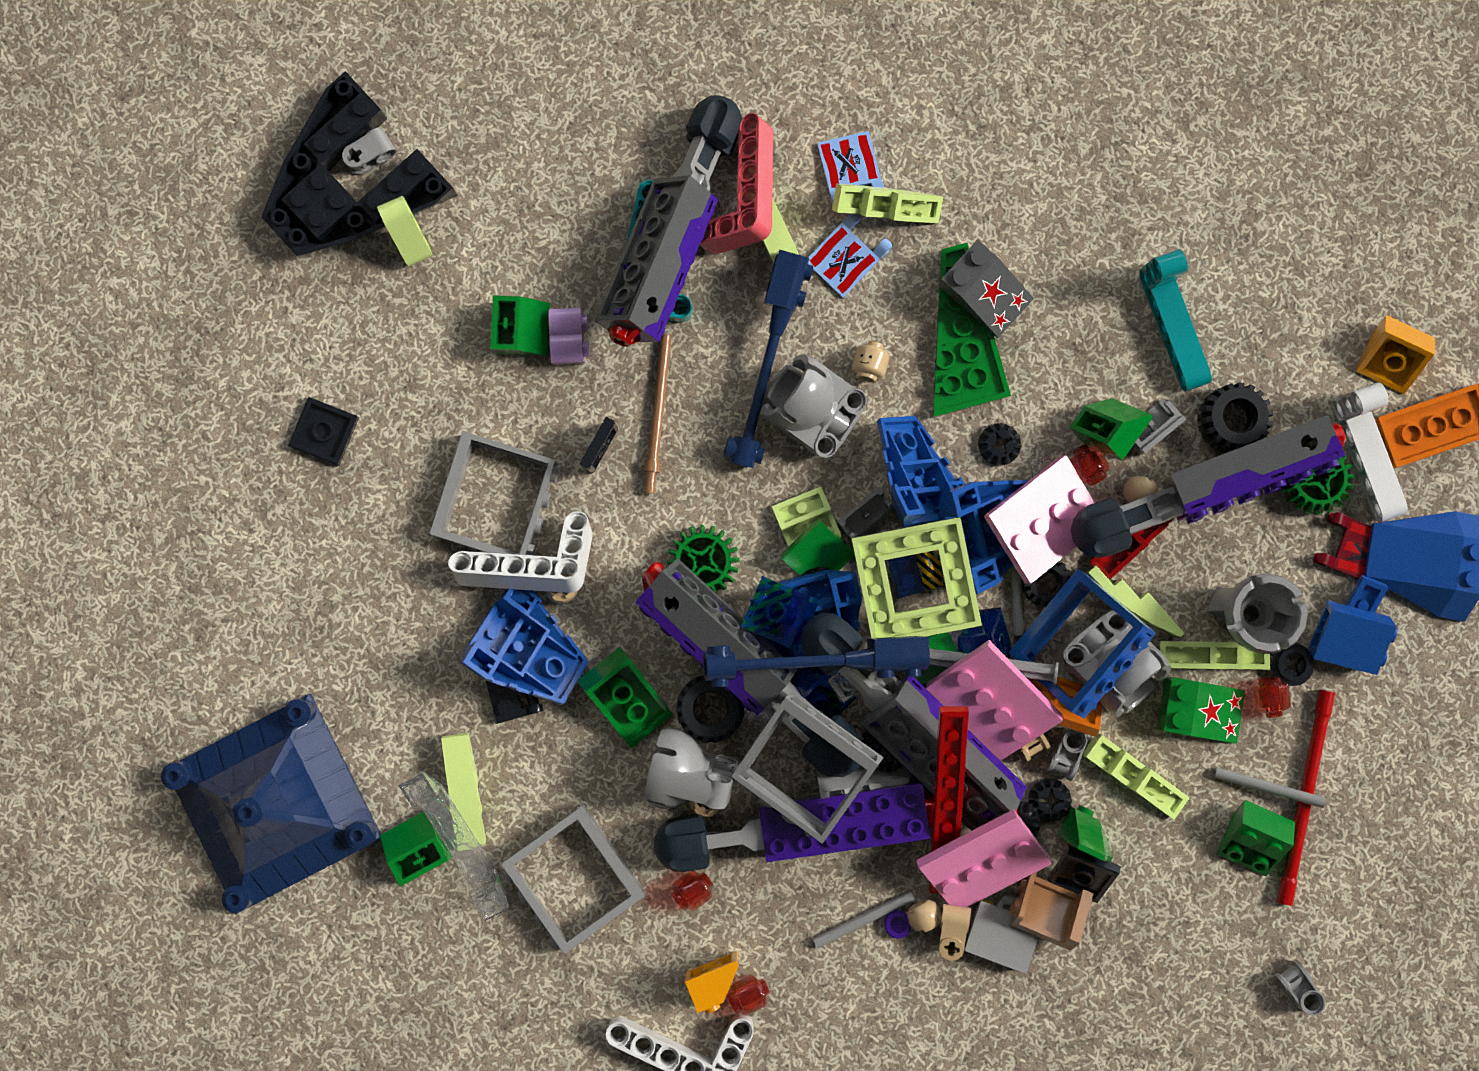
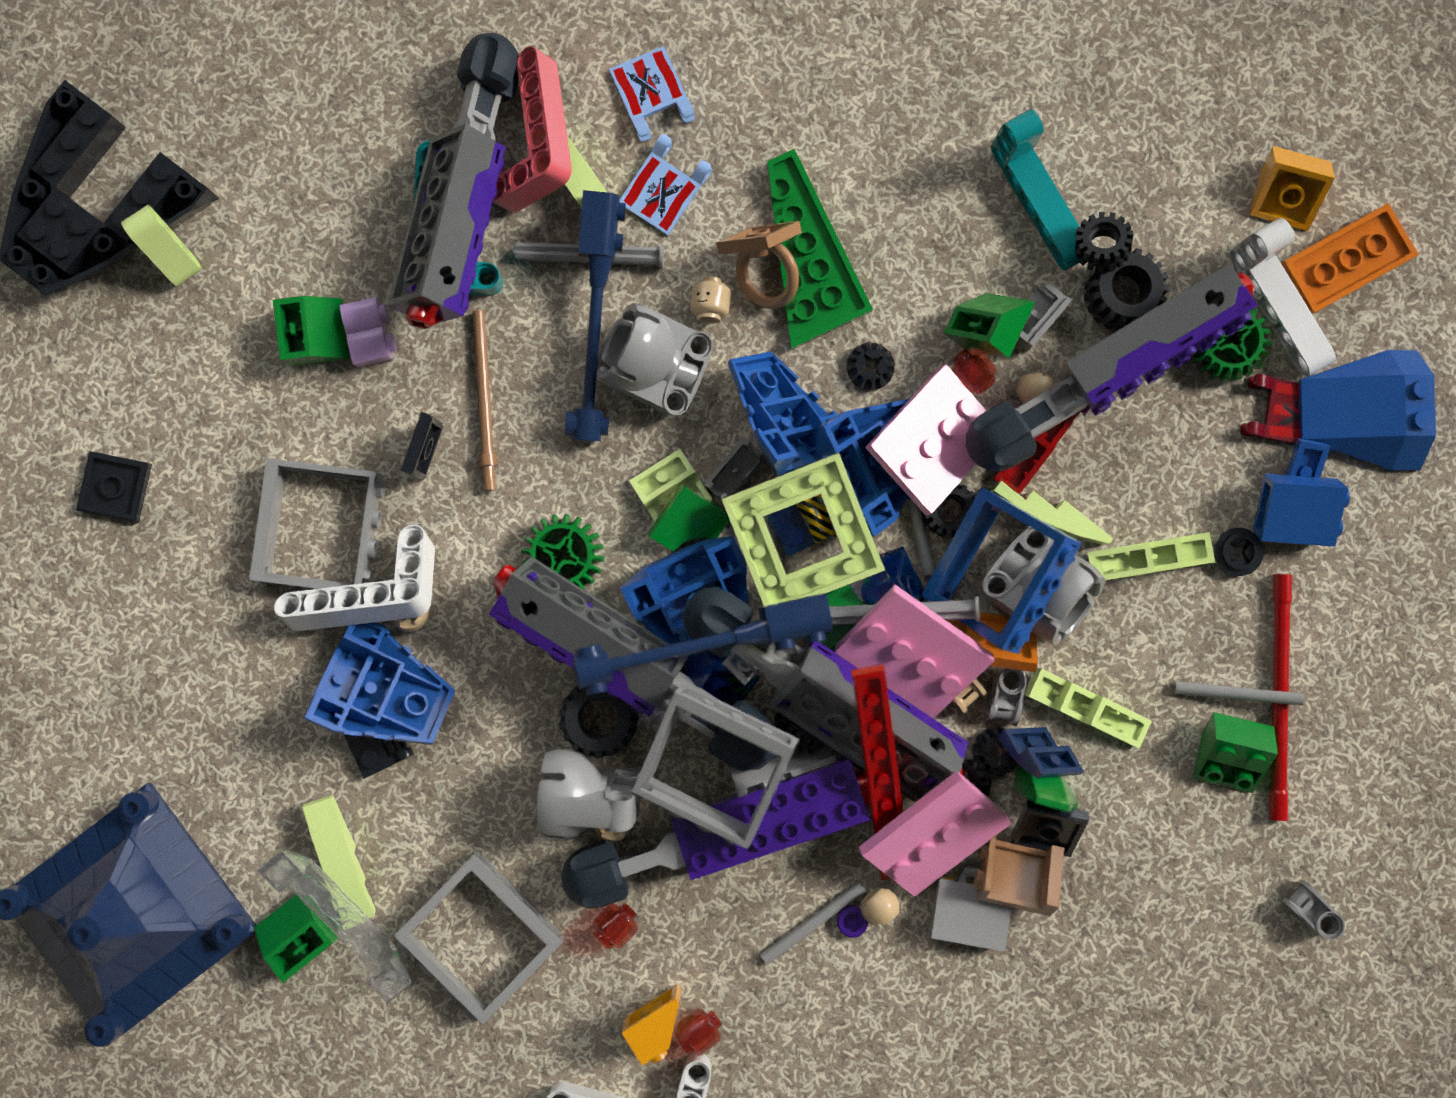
camera: 10 degrees left, 0 degrees up
(371, 150) = (112, 164): light grey piece -> none
(625, 697) = (502, 723): green slope -> none
(756, 299) = (569, 253): none -> light grey axle
(779, 612) = (655, 597): clear blue slope -> none
(887, 203) = (697, 120): yellowish green slope -> none
(924, 320) = (760, 242): none -> medium nougat tile
(953, 929) = (915, 916): tan piece -> none
(986, 289) = (823, 195): dark grey slope -> none
(1086, 807) = (1038, 752): none -> dark blue slope
(1200, 709) = (1146, 620): green slope -> none
(1227, 361) = (1106, 227): none -> black tyre
(1271, 696) = (1222, 592): clear red head -> none
(1276, 612) = (1211, 499): light grey piece -> none

